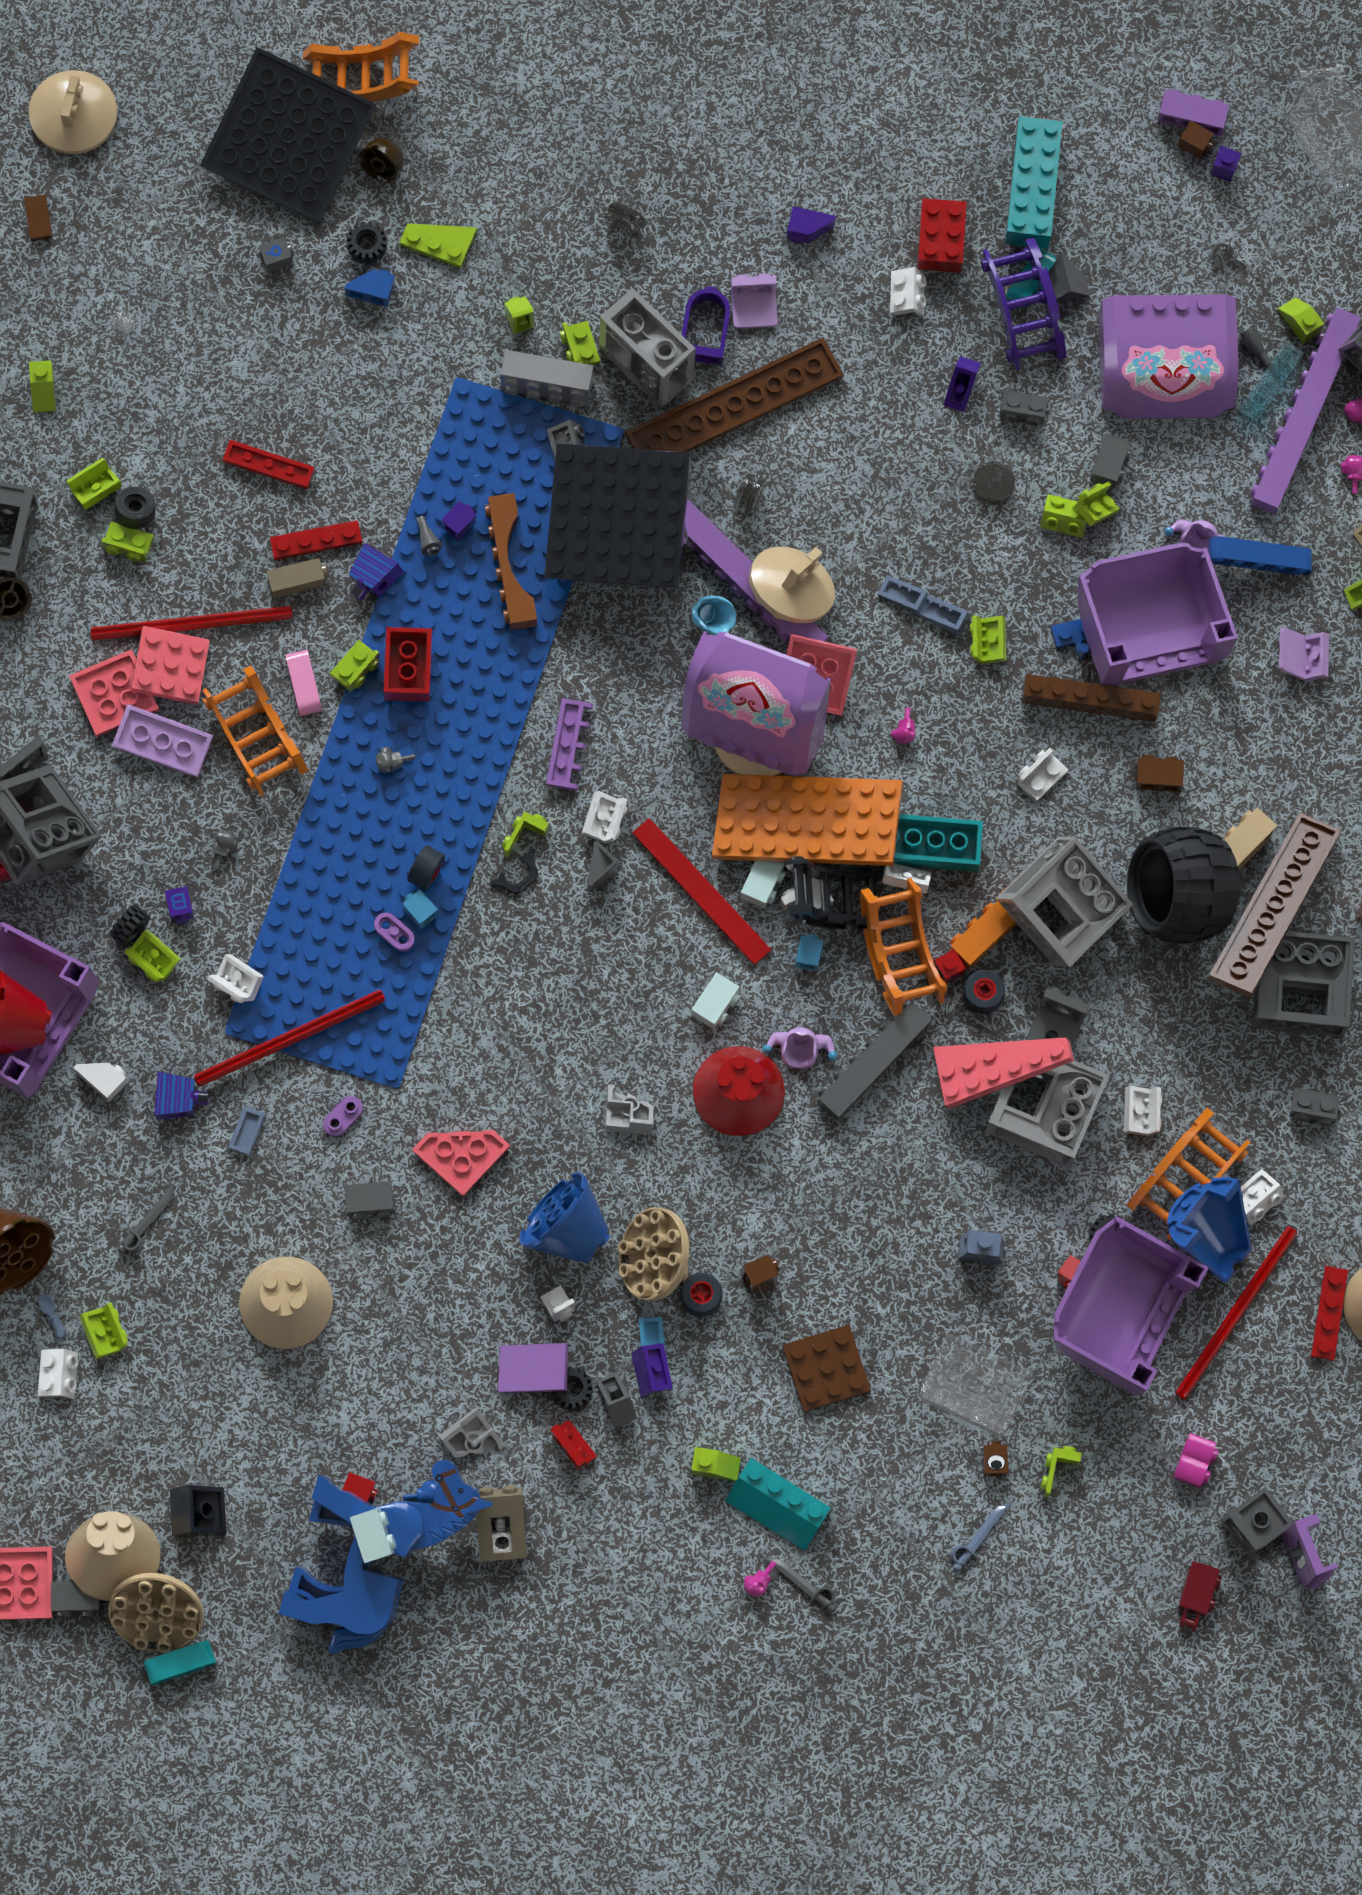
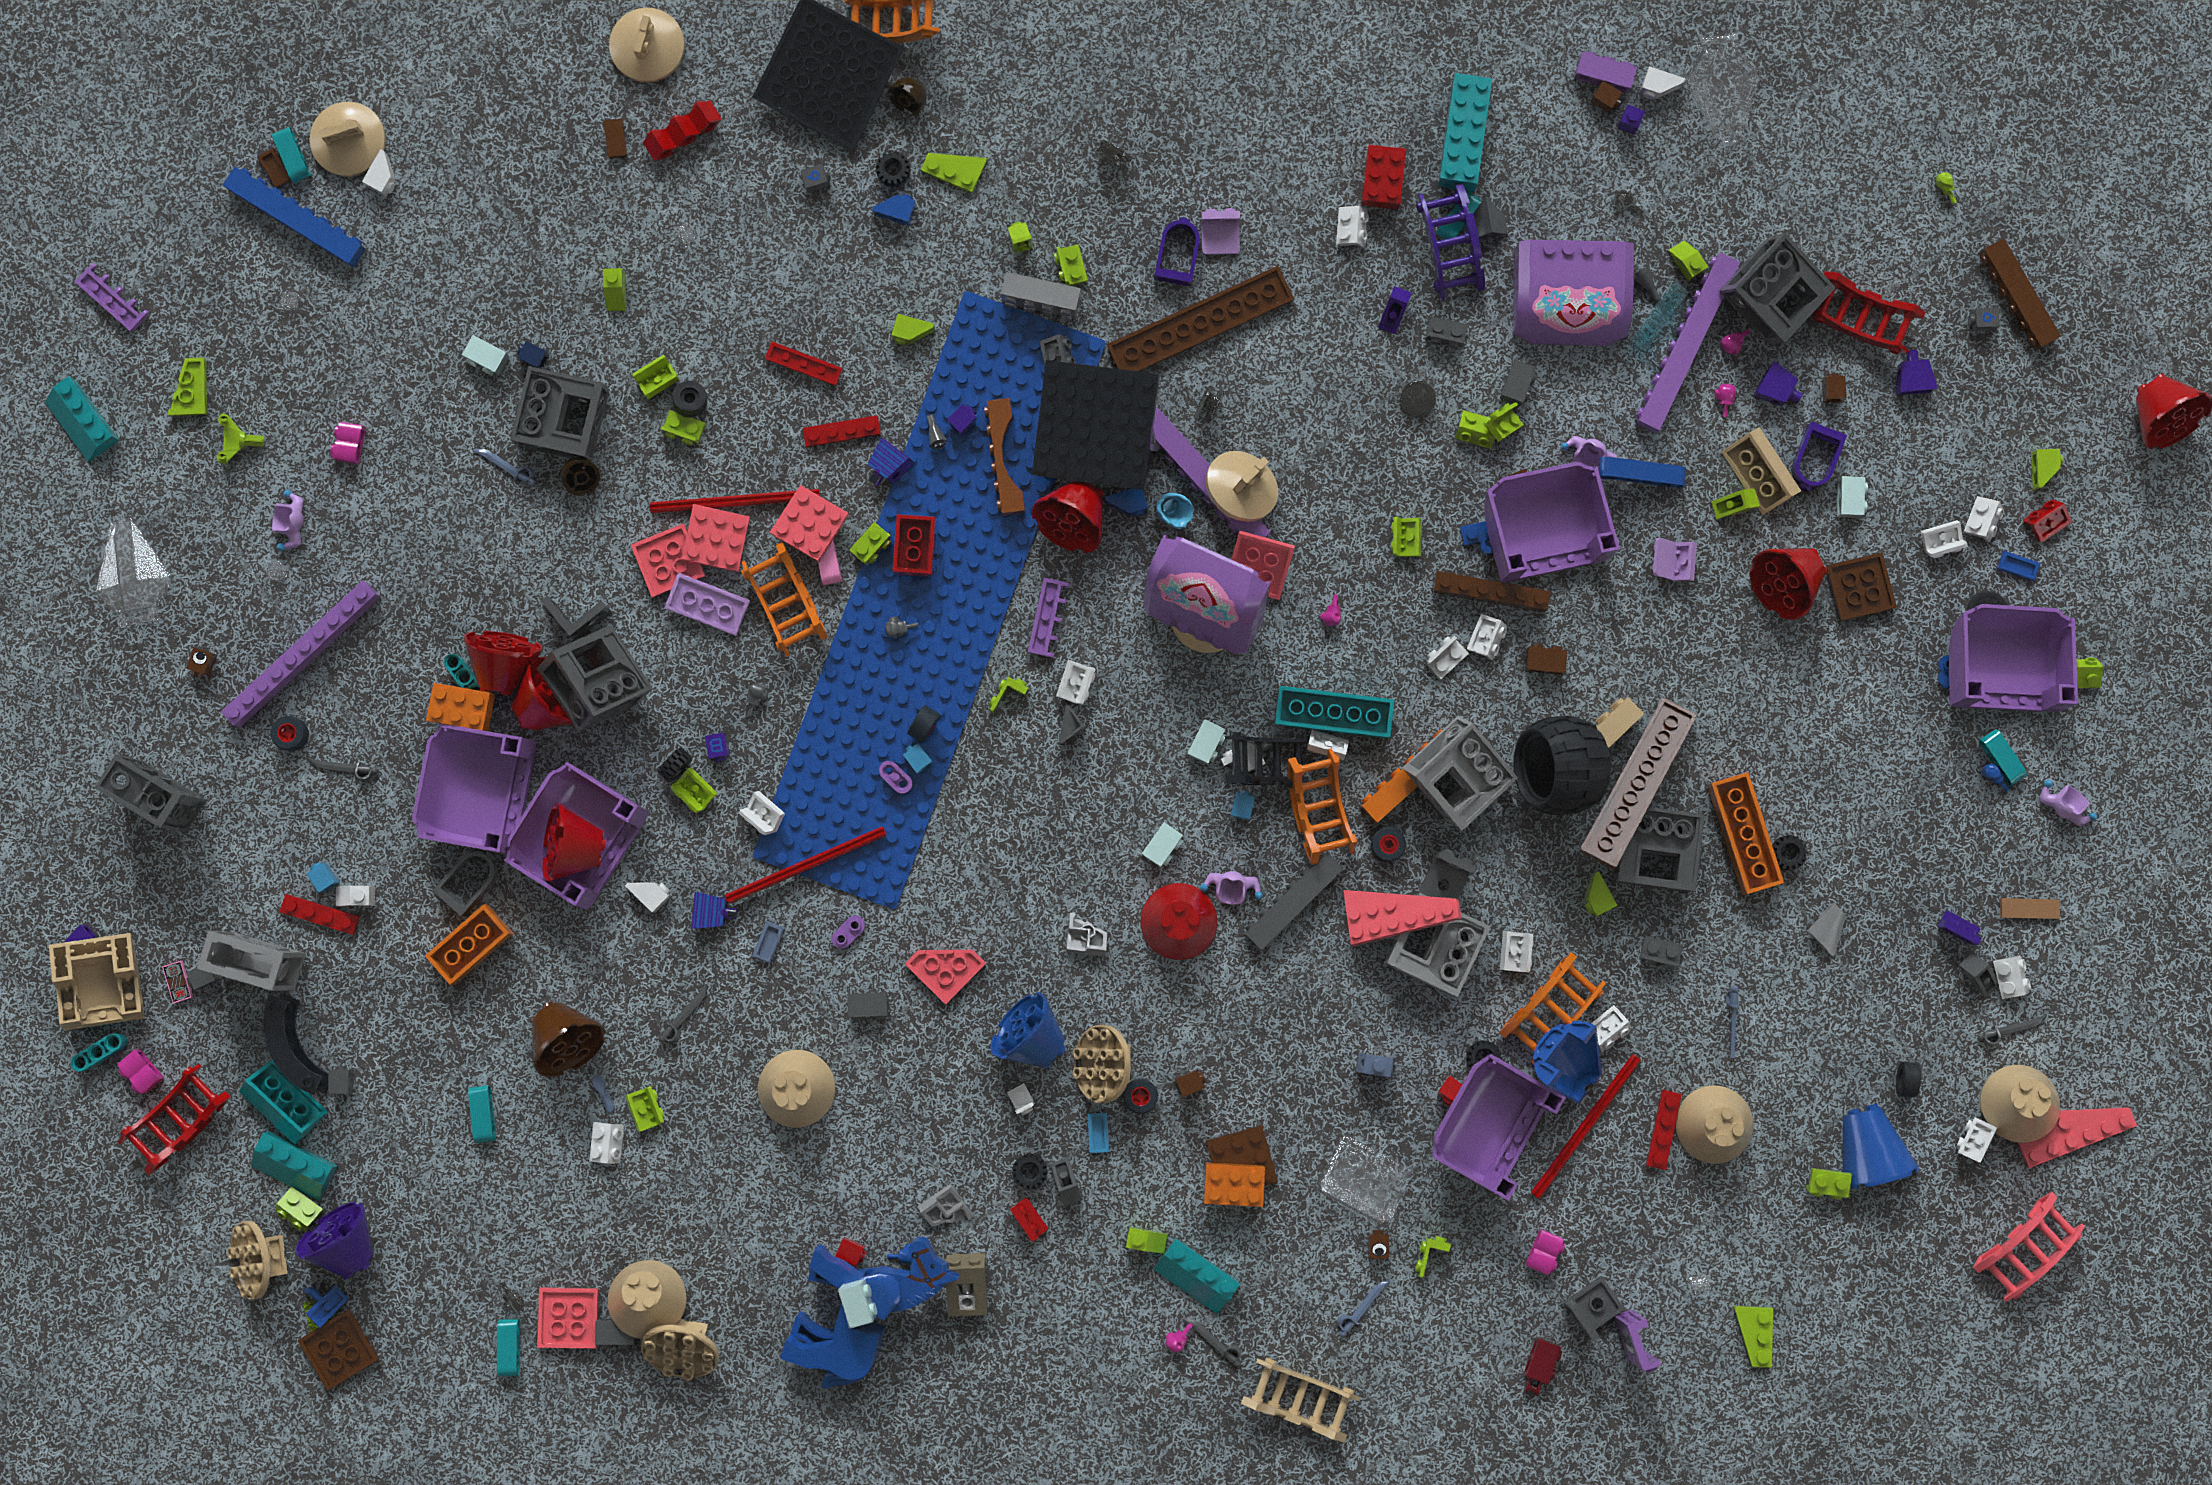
camera: 10 degrees right, 10 degrees up
(117, 205) = (682, 130): none -> red brick
(179, 1661) = (700, 1389): teal beam -> none
(197, 1511) = (718, 1263): black slope -> none
(282, 643) = (809, 523): none -> coral plate
(297, 577) = (824, 464): dark tan brick -> none
(393, 421) = (910, 329): none -> lime slope
(523, 884) = (1008, 735): black helmet -> none
(533, 1368) = (998, 1154): medium lavender tile -> none
(591, 625) = (1071, 516): none -> red cone
(646, 348) = (1126, 274): light grey piece -> none
(651, 1369) = (1097, 1158): dark purple panel -> none
(658, 609) = (1129, 502): none -> blue slope
(701, 891) = (1154, 748): red tile -> none
(808, 225) = (1269, 164): dark purple slope -> none
(808, 818) = (1246, 693): orange plate -> none
(818, 1390) = (1234, 1184): none -> orange brick
(902, 1665) = (1293, 1414): none -> tan fence
(923, 605) = (1353, 504): sand blue slope -> none
(949, 966) = (1359, 822): red brick -> none
(1089, 750) = (1487, 636): none -> white bracket
(1237, 1043) = (1598, 896): none -> lime slope
(1257, 123) = (1659, 83): none -> white slope

